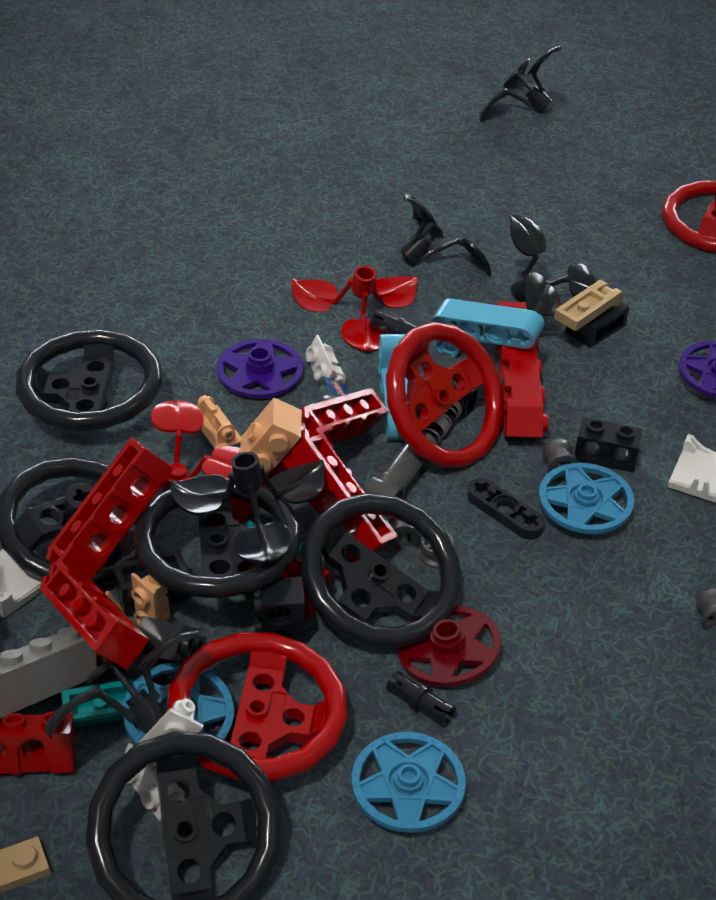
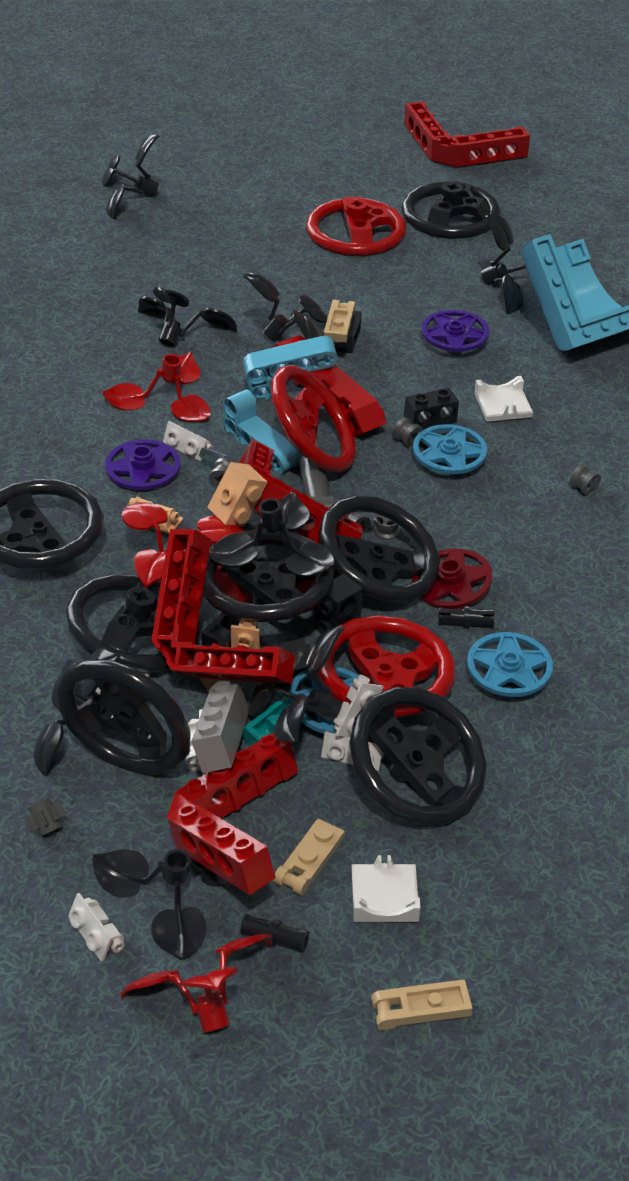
camera: 35 degrees left, 0 degrees up
(390, 324) = (213, 392): black pin -> none
(502, 498) = (400, 474): black beam -> none

